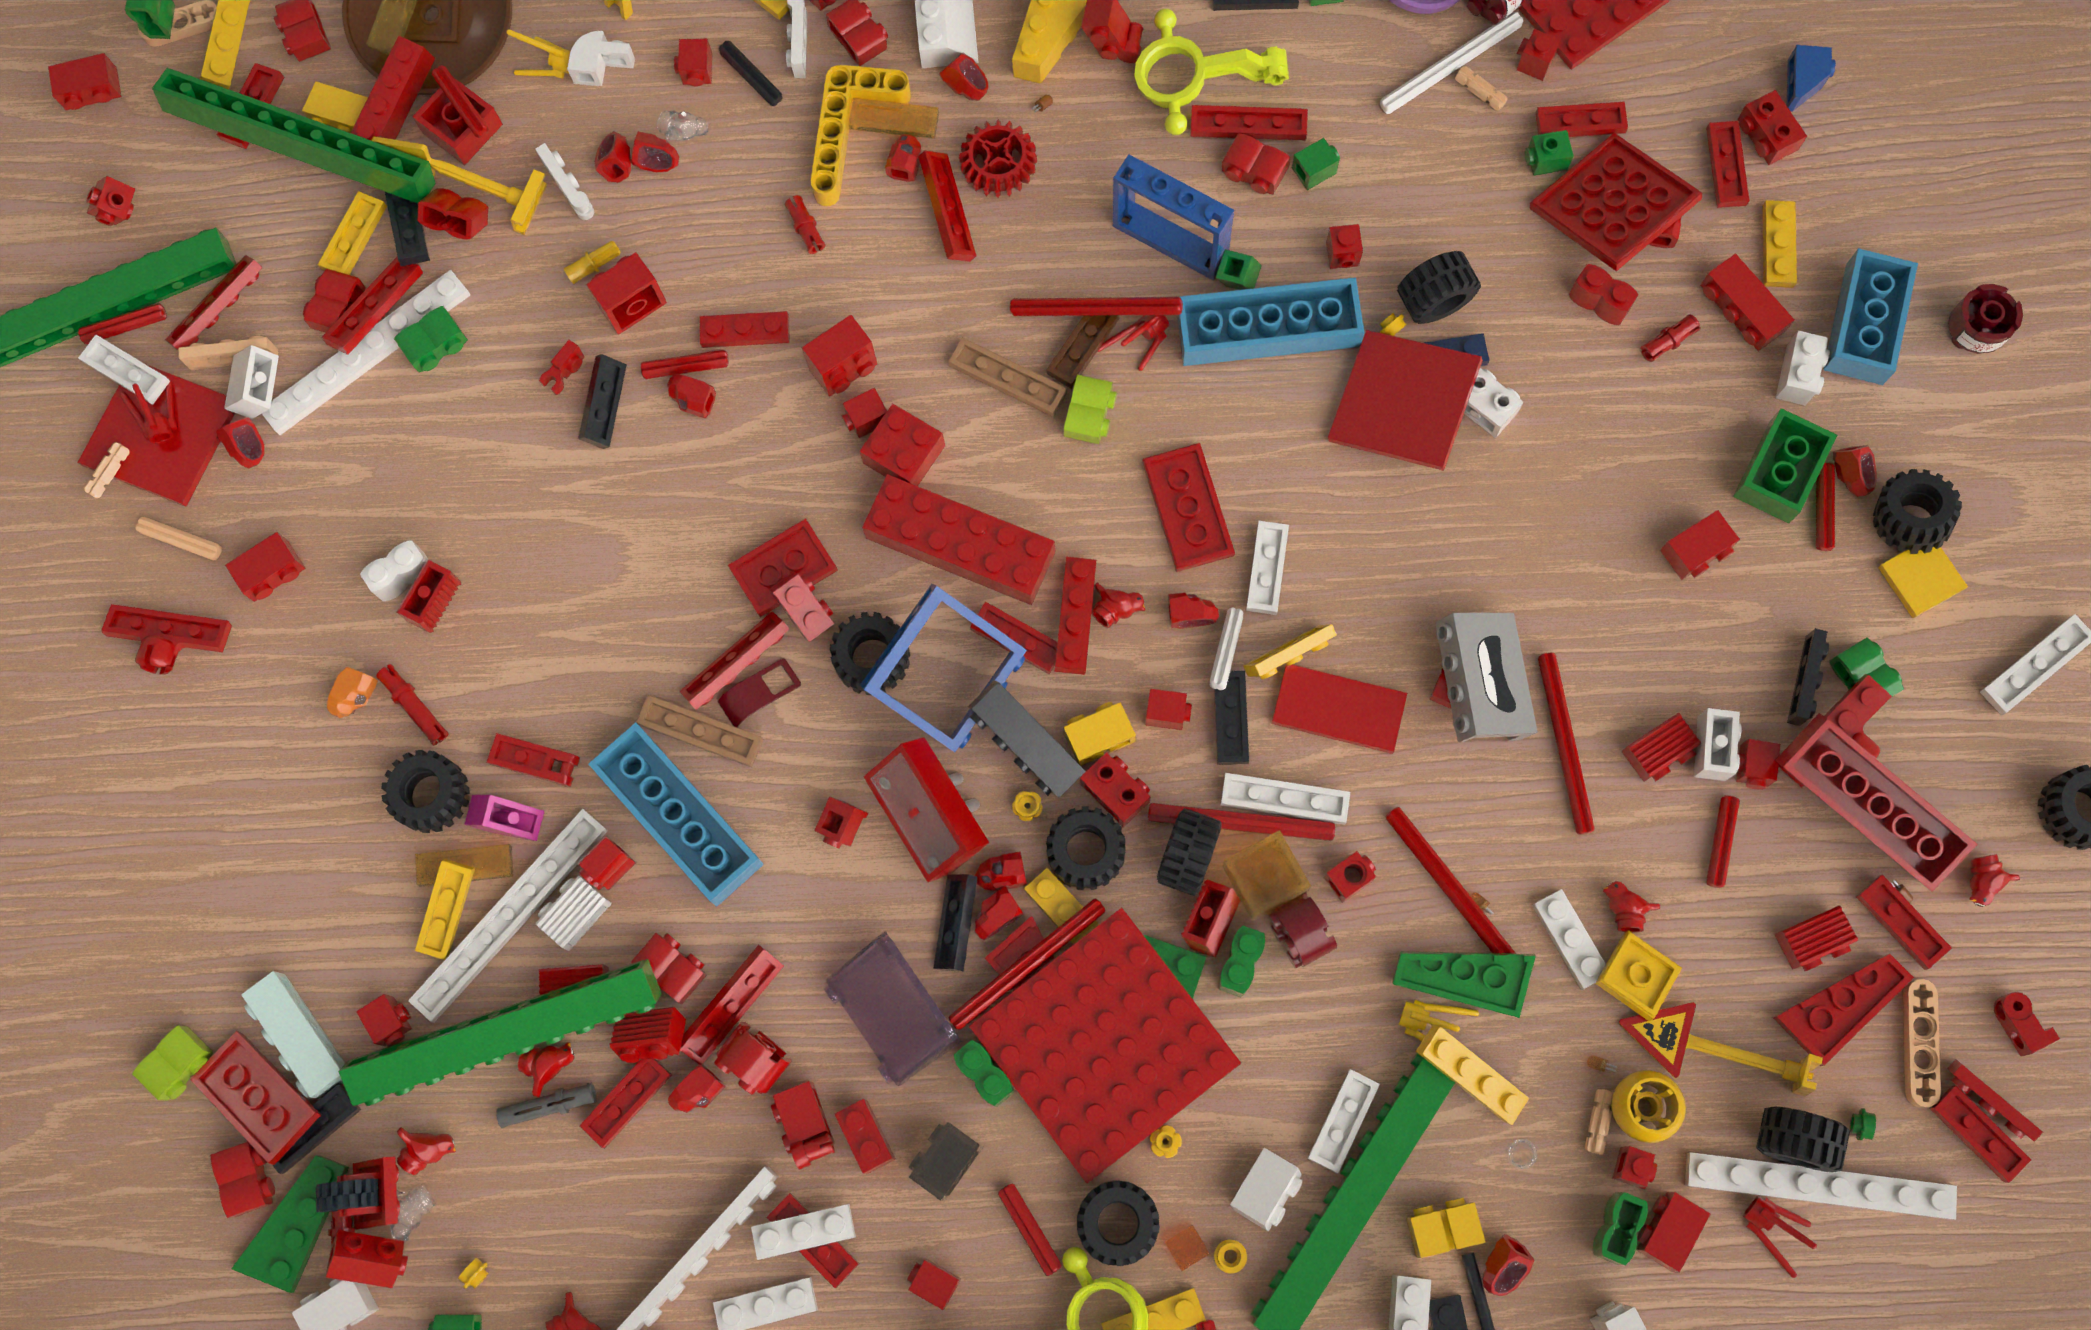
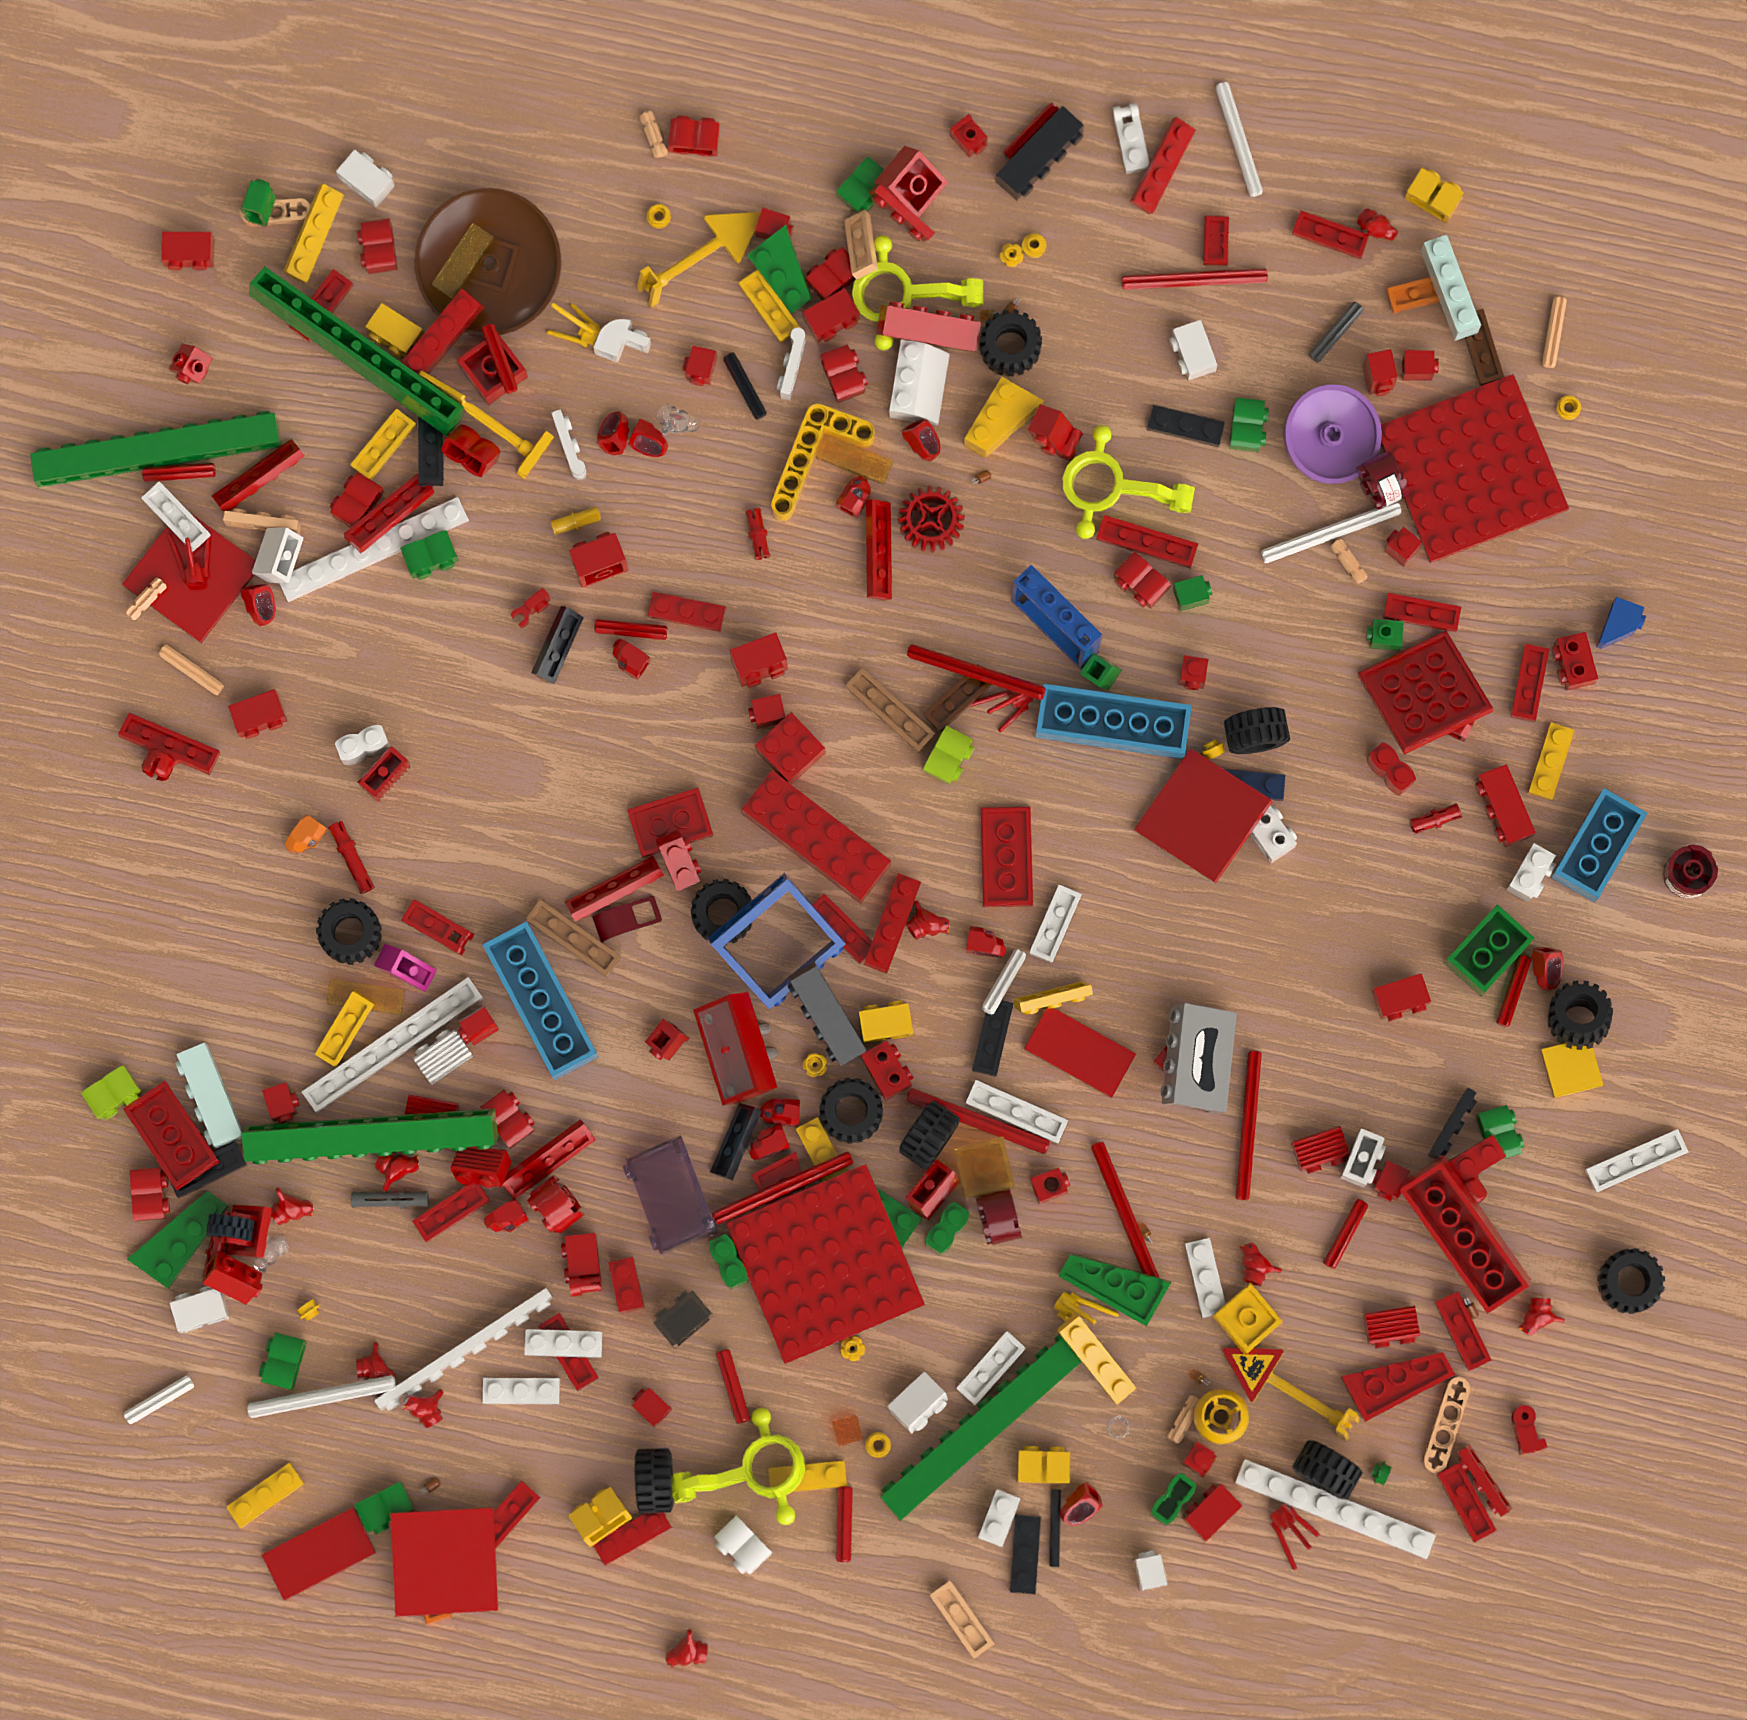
camera: 10 degrees right, 5 degrees up
(1146, 1232) = (793, 1376): black tyre -> none
(1167, 709) = (944, 1018): red brick -> none

